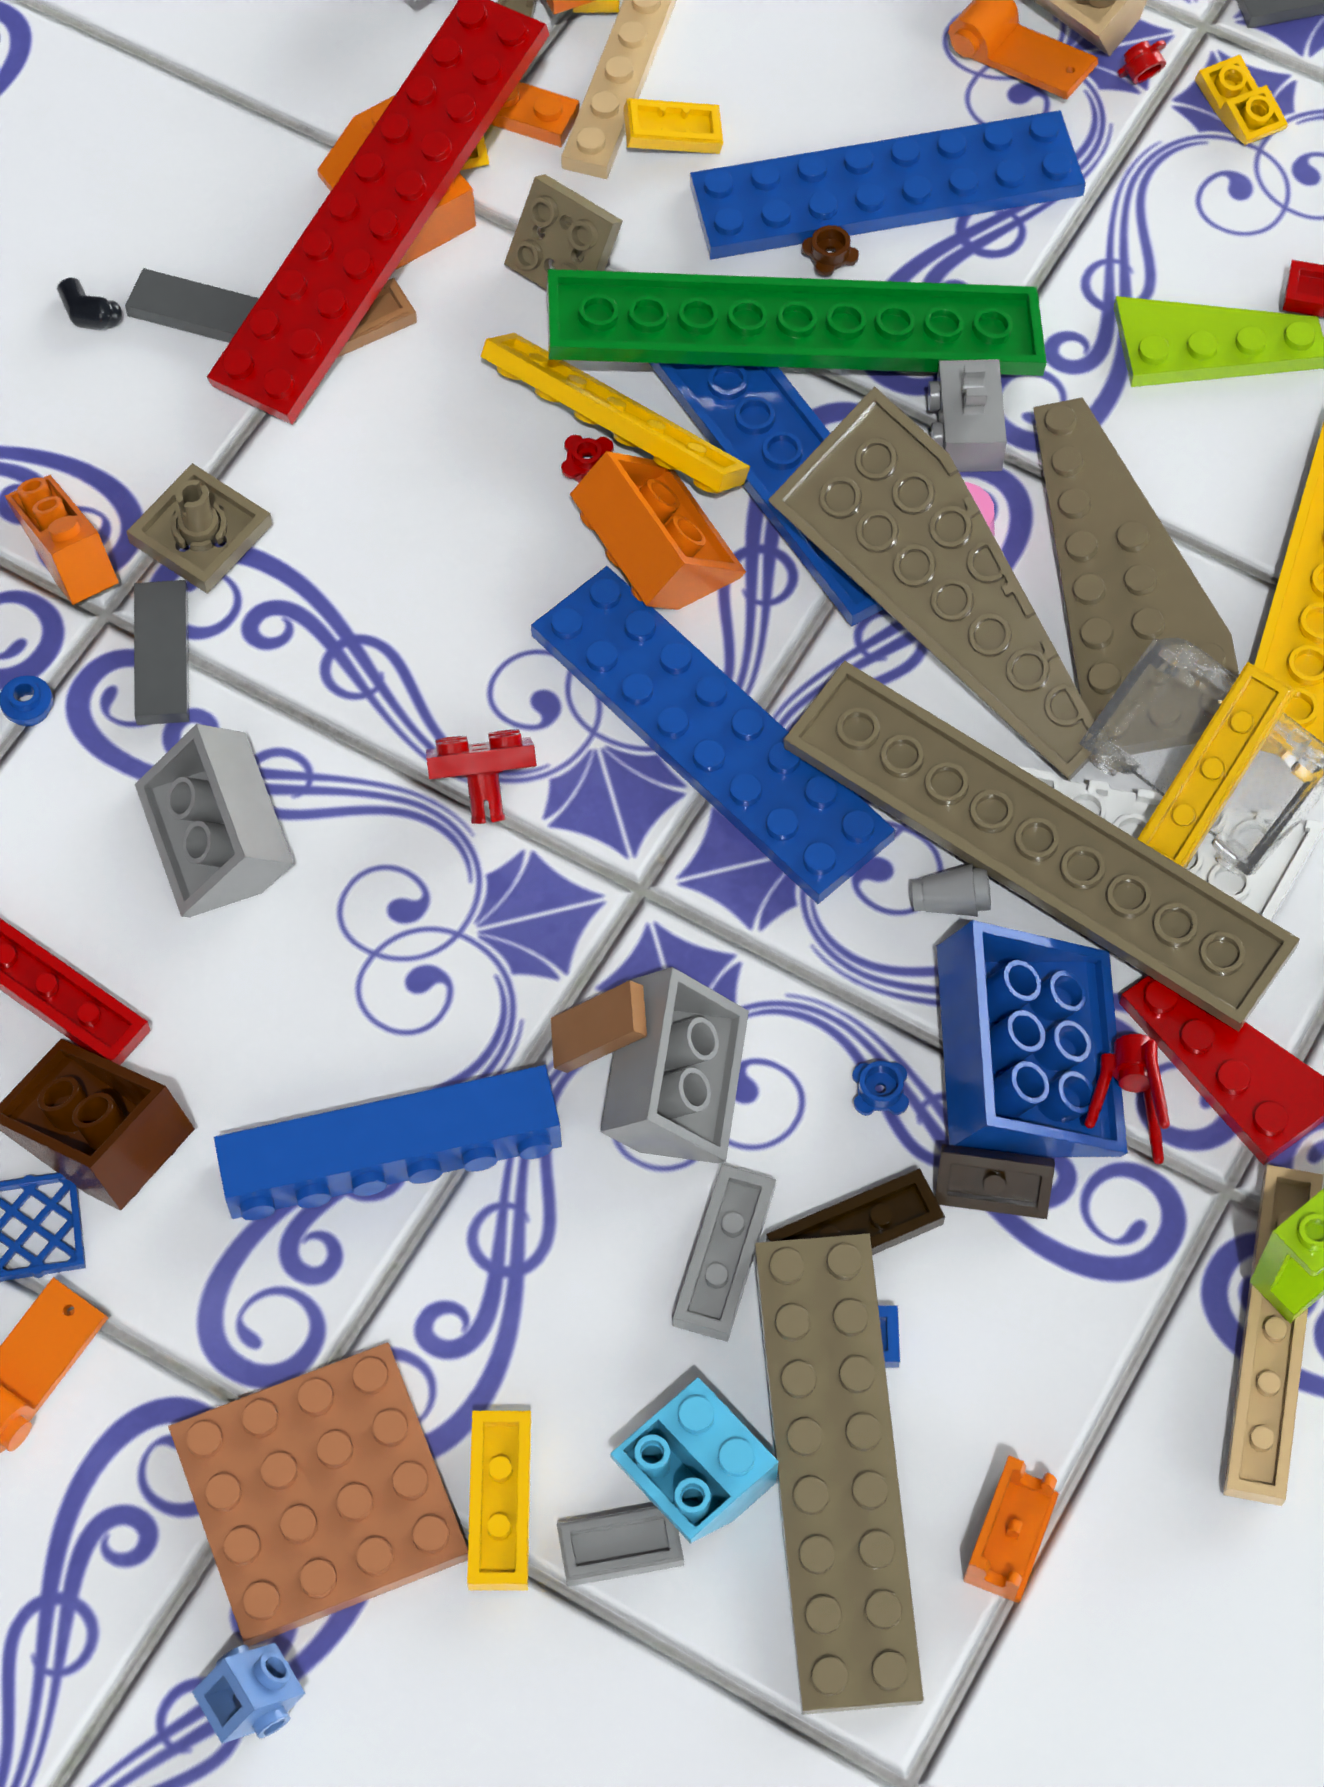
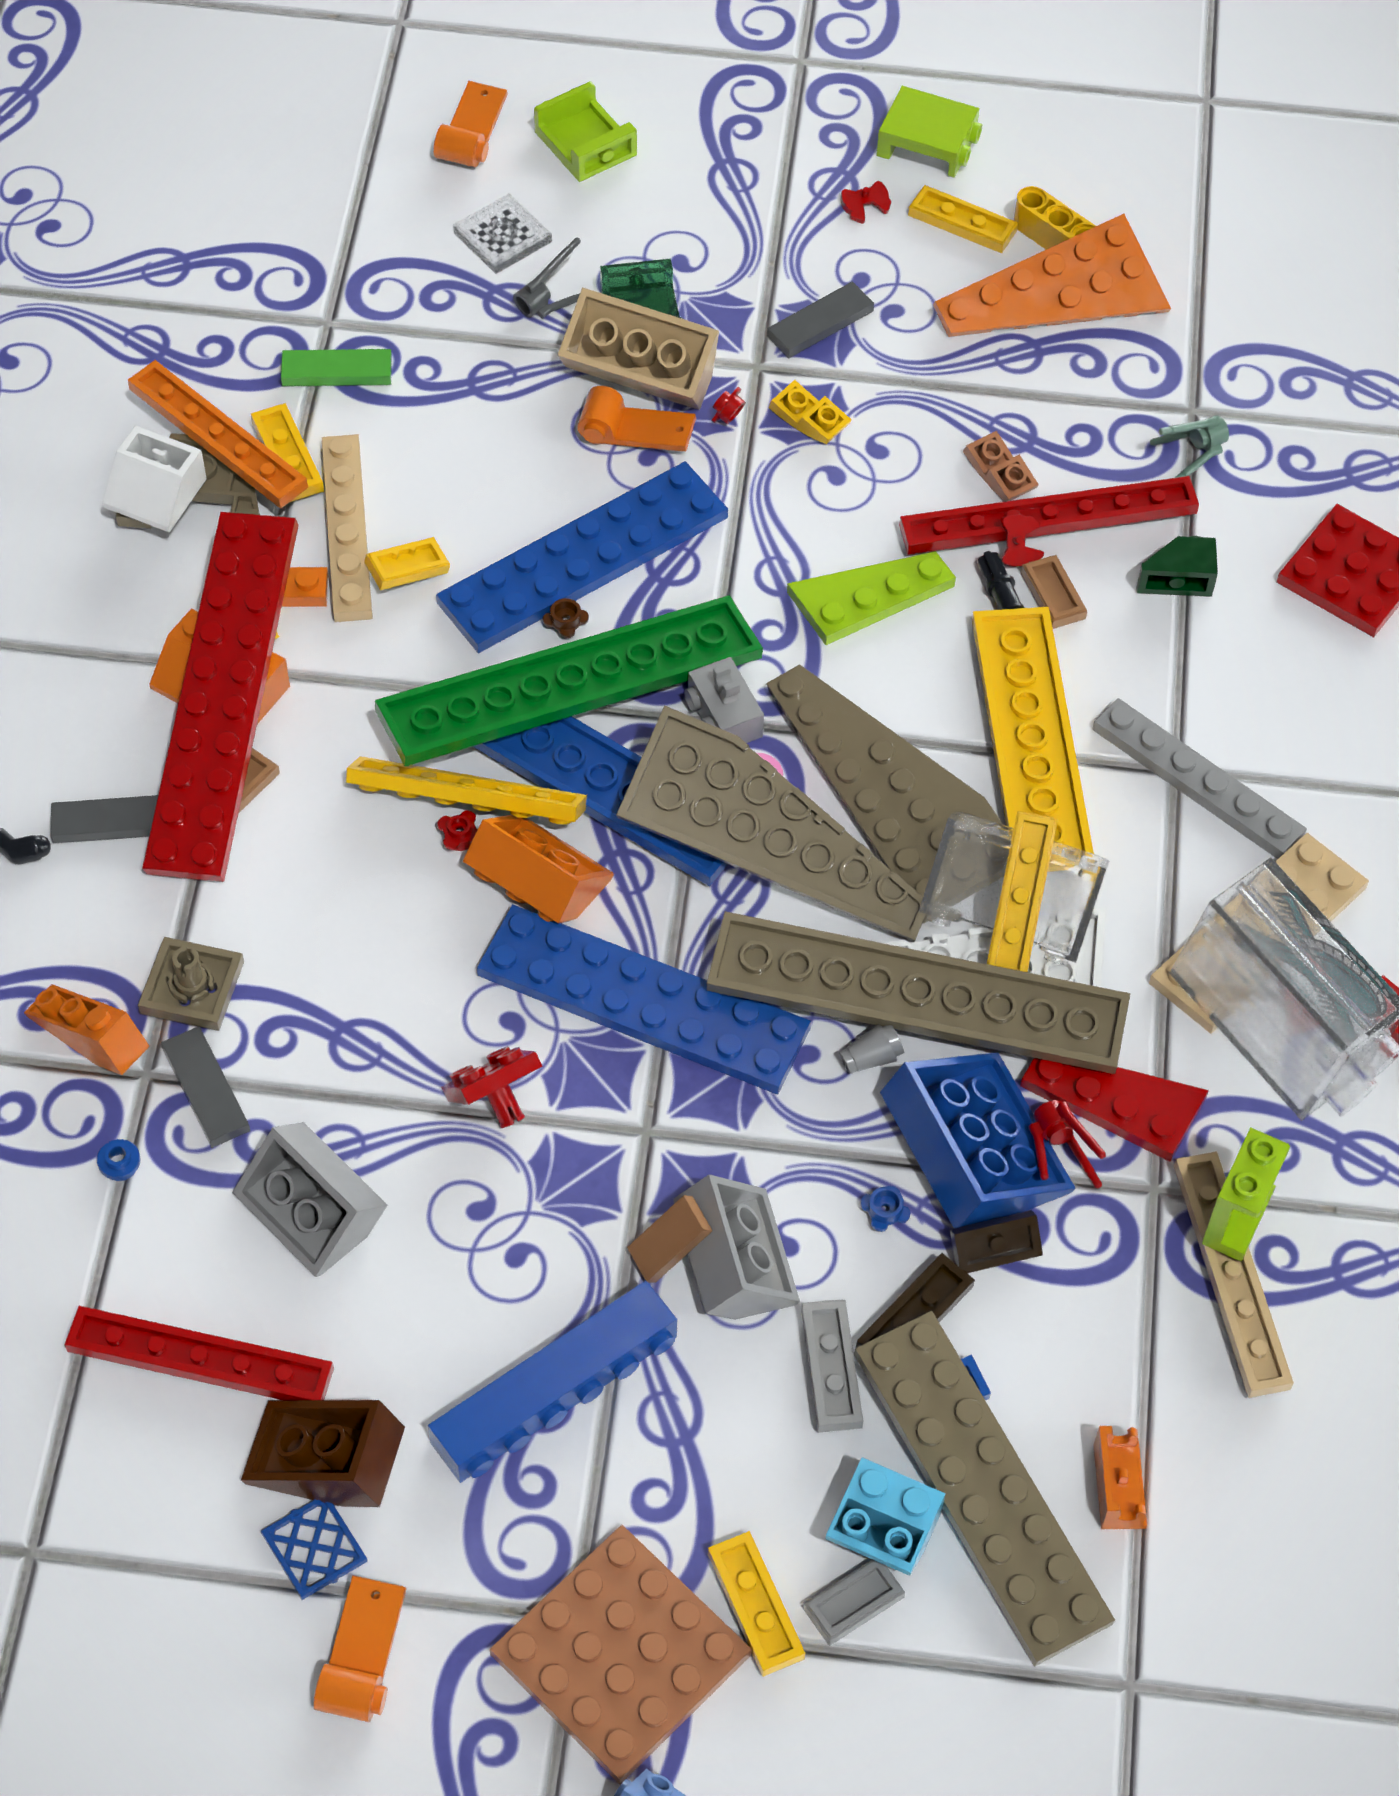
camera: 25 degrees left, 5 degrees down
(574, 231) = (374, 664): dark tan plate -> none

